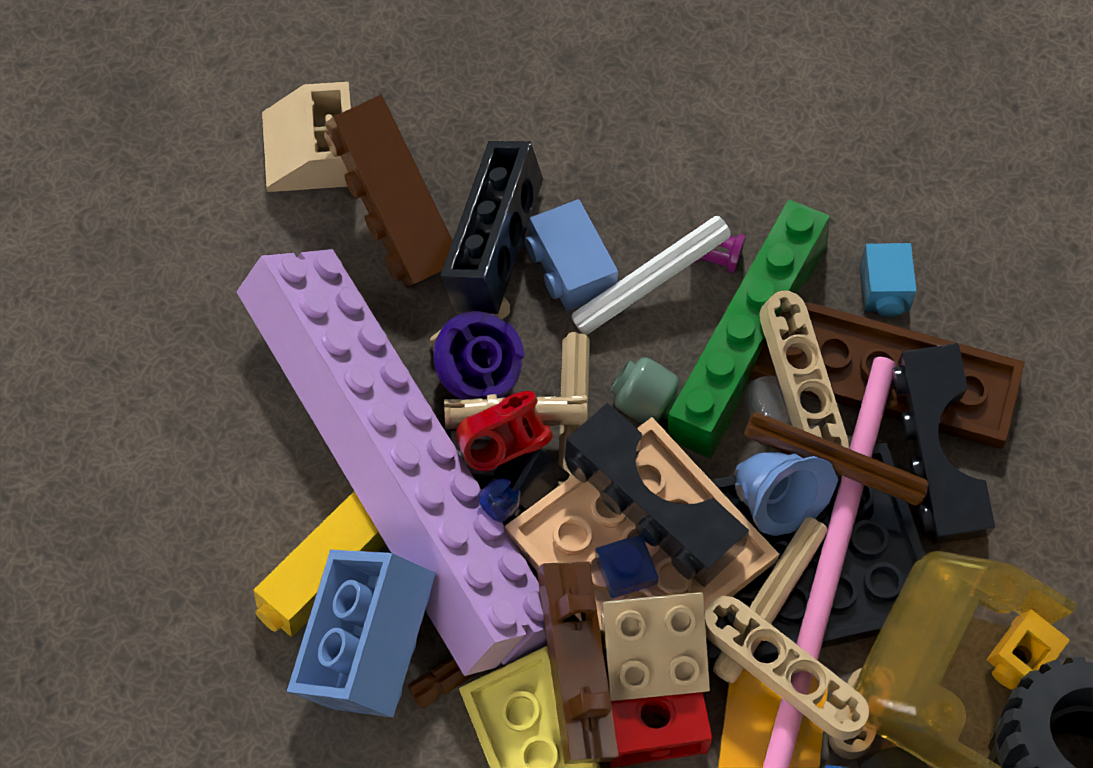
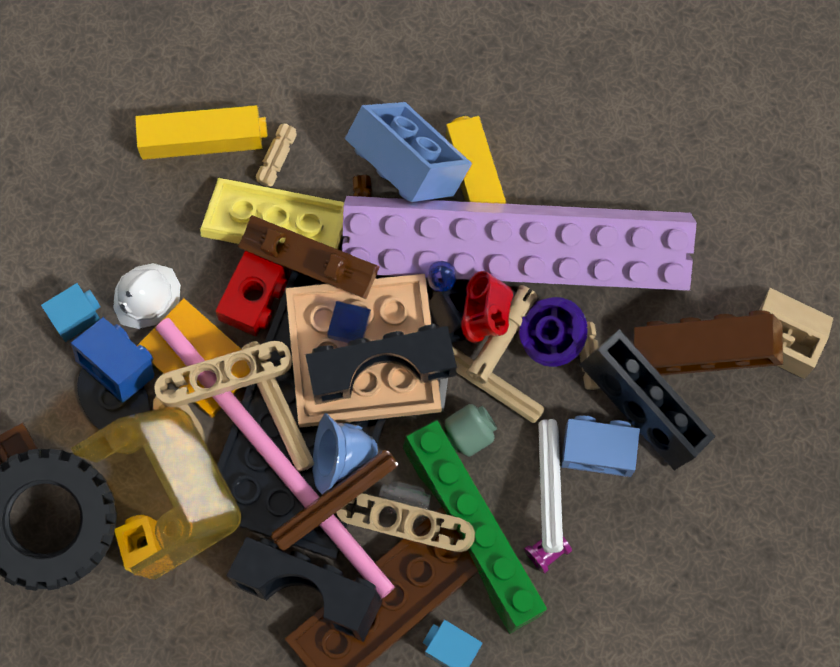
camera: 125 degrees right, 10 degrees up
(656, 646) = (286, 306): tan hinge -> none

